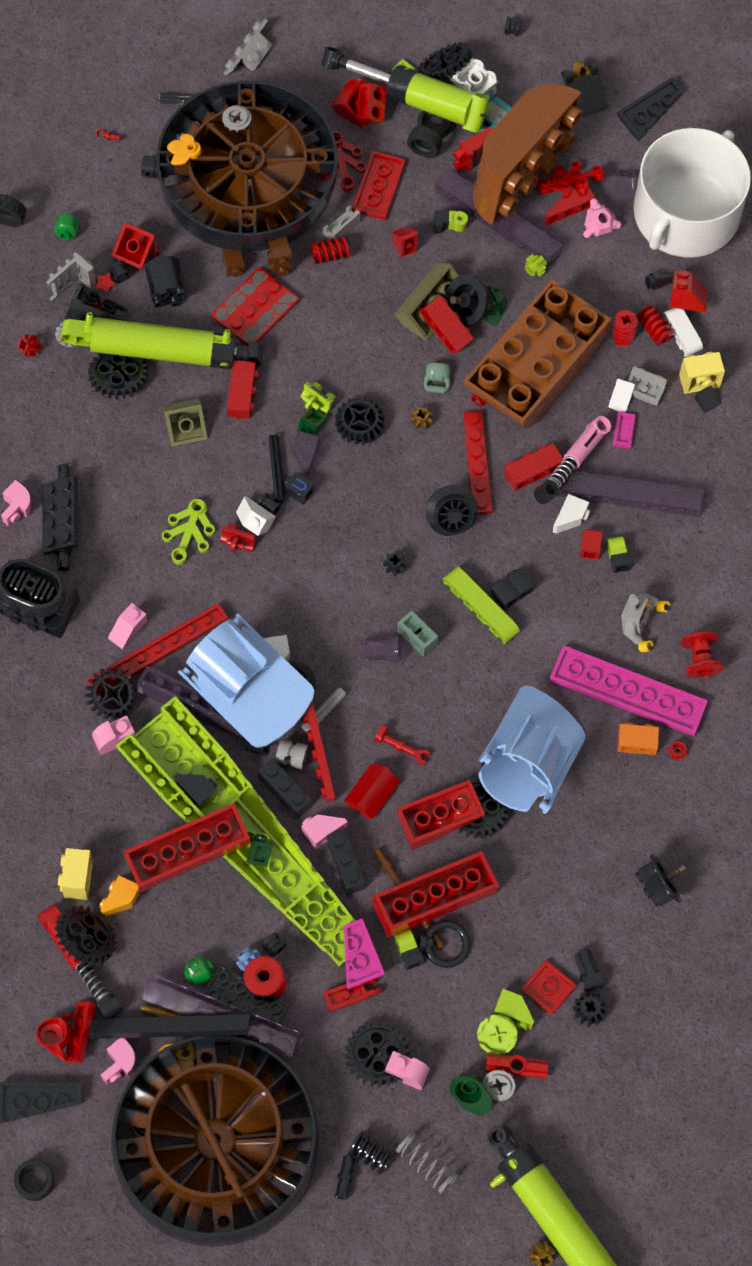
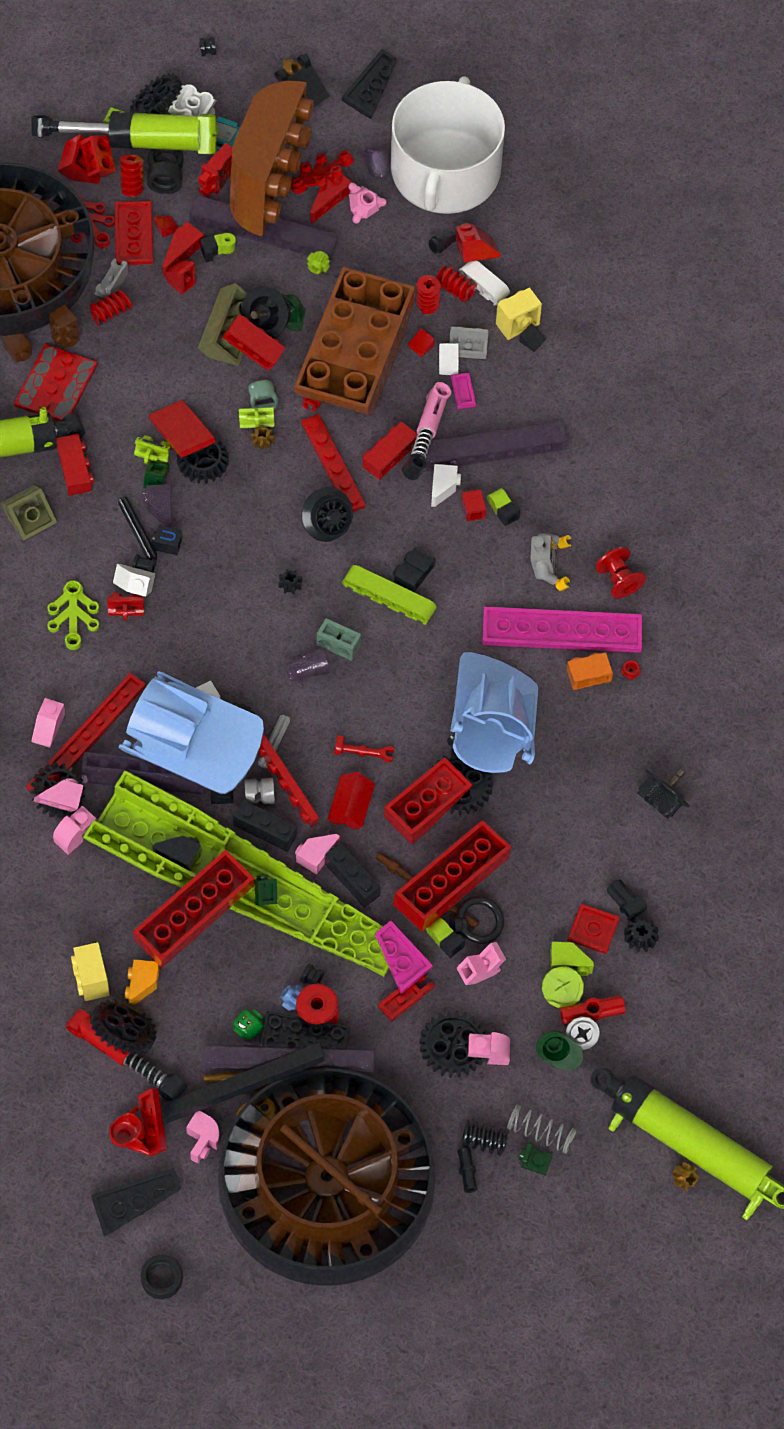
camera: 20 degrees left, 5 degrees down
(110, 700) = (63, 795): none -> bright pink slope
(350, 386) = (181, 428): none -> red tile
(395, 130) = (132, 175): none -> red piece
(410, 187) = (165, 225): none -> red slope
(410, 1189) = (535, 1159): none -> dark green bracket
(417, 211) = (183, 245): none -> red slope
(422, 397) = (256, 417): none -> lime hips
(430, 989) = (482, 966): none -> bright pink brick
(602, 372) = (421, 343): none -> red slope

